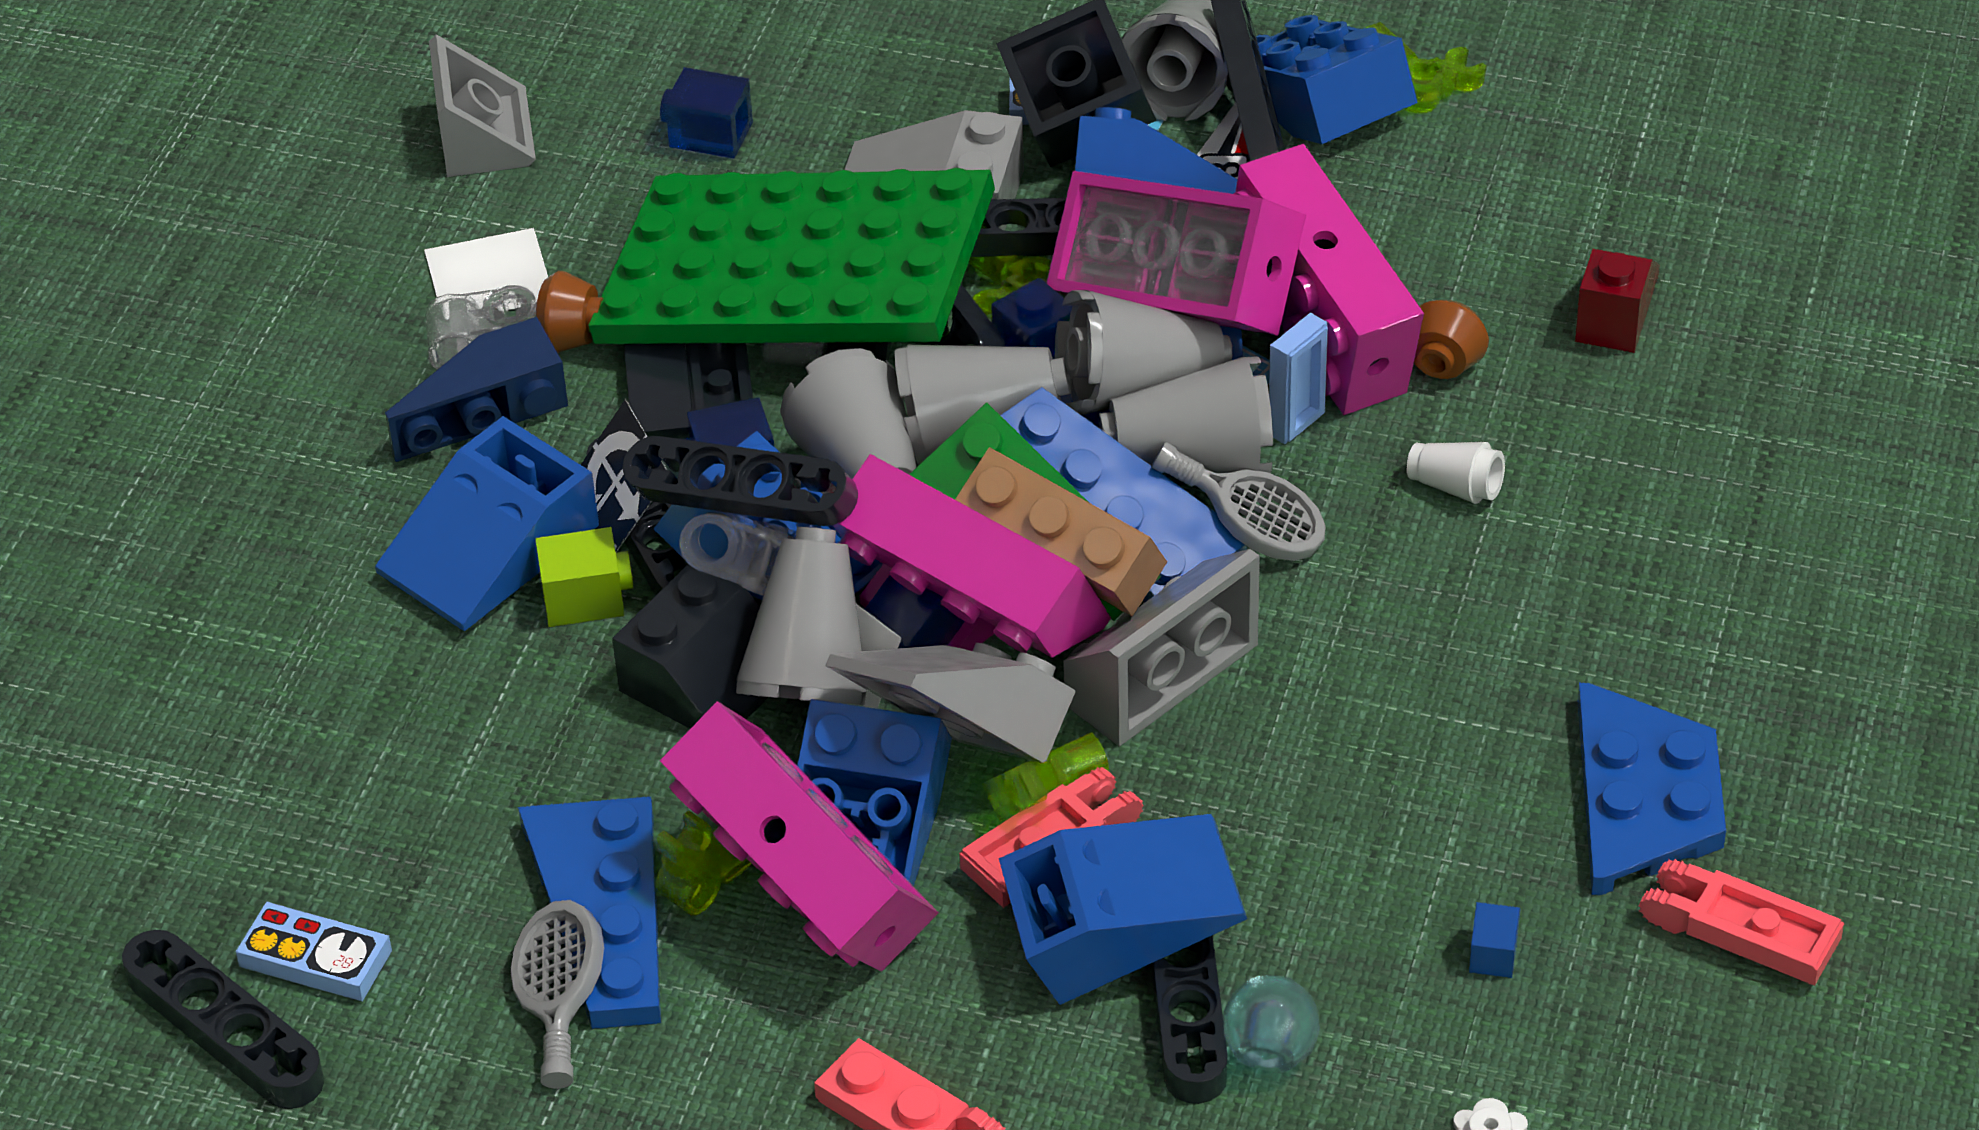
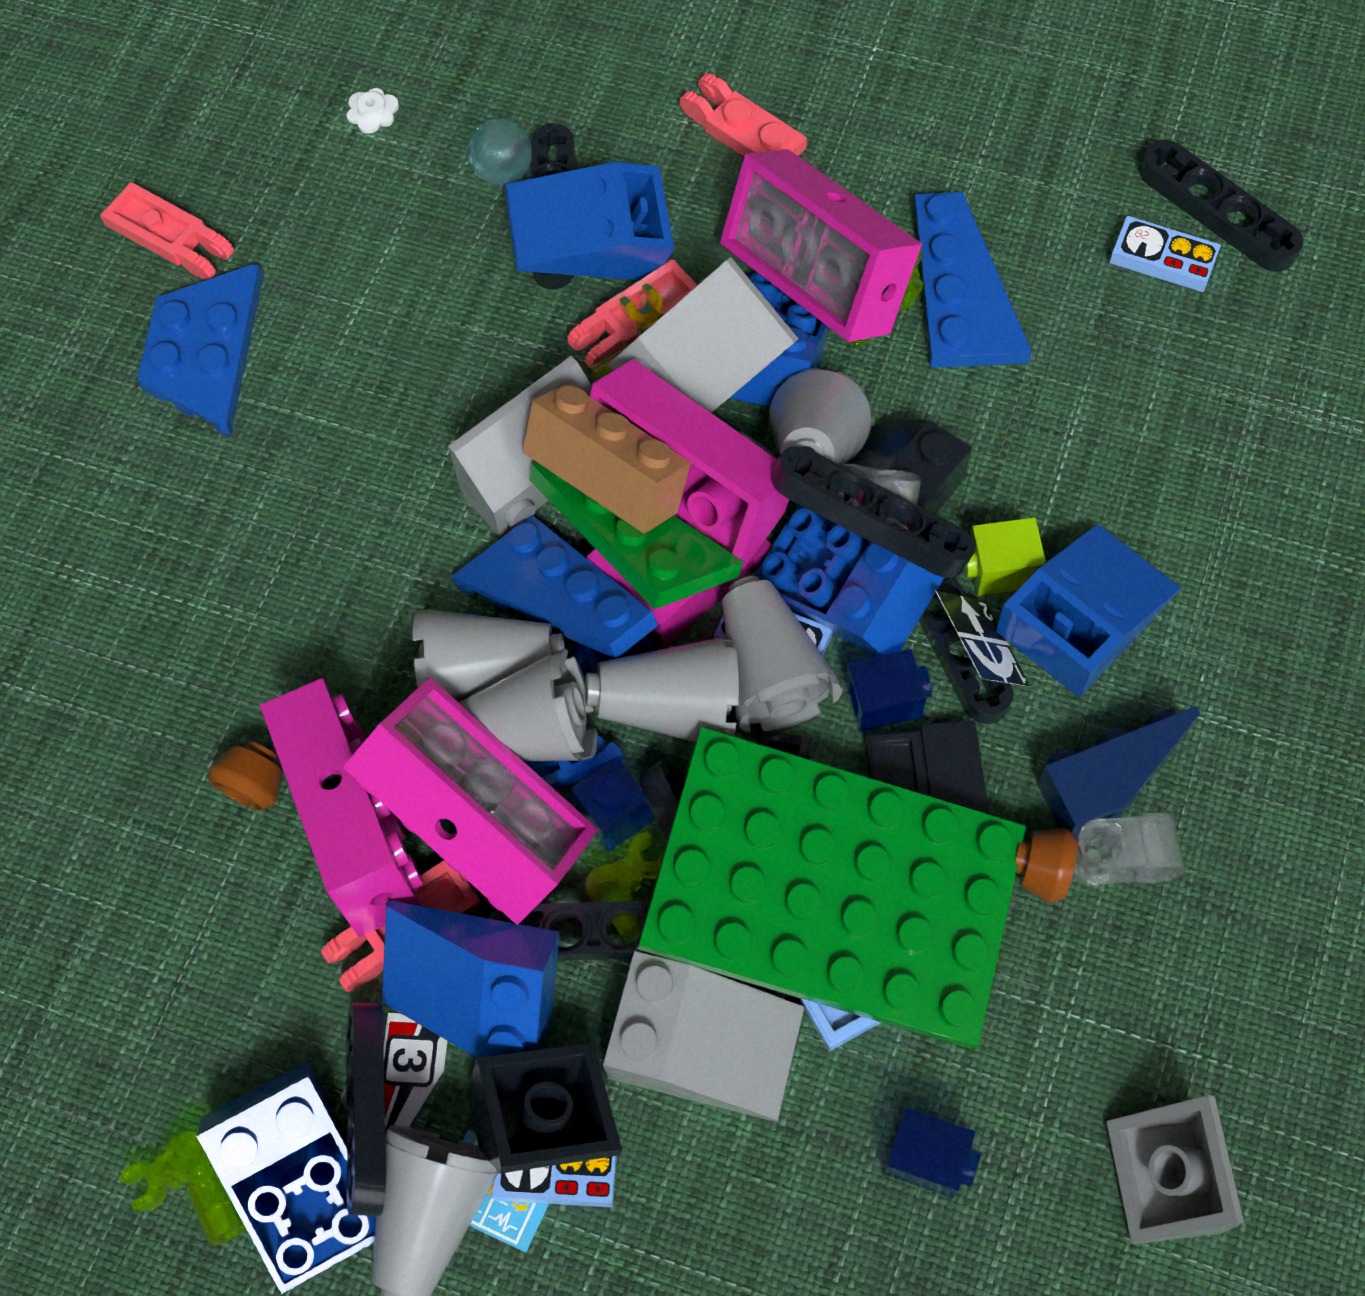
camera: 175 degrees left, 20 degrees up
(488, 264) = (1132, 959): white sticker -> none
(557, 1013) = (986, 195): light grey piece -> none
(1221, 489) = (468, 600): light grey piece -> none
(1298, 377) = (379, 696): light blue tile -> none
(1460, 469) = (268, 638): white cone -> none
(1494, 939) = (333, 212): blue piece -> none
(1615, 299) = (76, 836): dark red slope -> none

